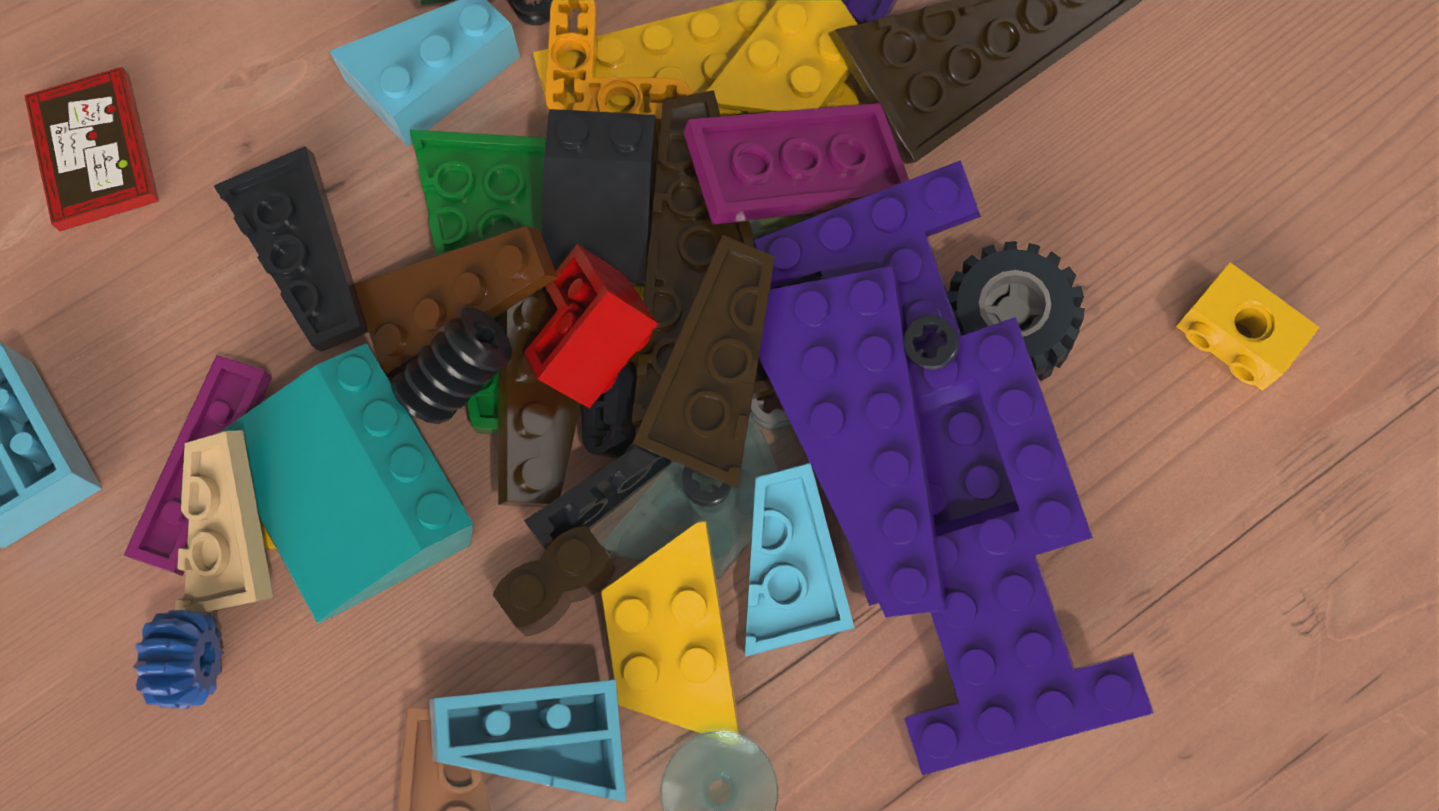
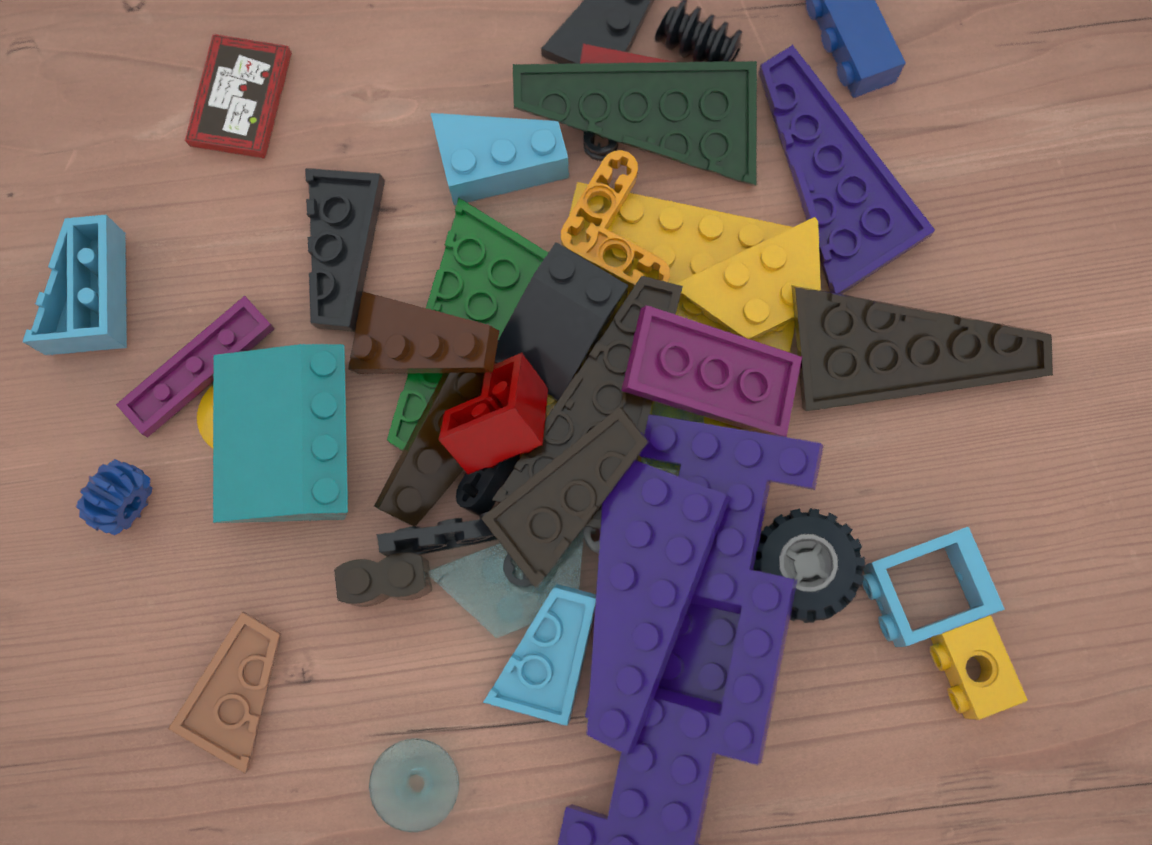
camera: 30 degrees right, 5 degrees up
(225, 540) = (183, 431): tan wing -> none
(453, 367) = (391, 394): black piece -> none
(536, 735) = (311, 680): medium azure wedge -> none
(672, 638) = (441, 662): yellow wing -> none
(918, 331) = (721, 551): black bush -> none
(1180, 236) = (970, 573): none -> medium azure window

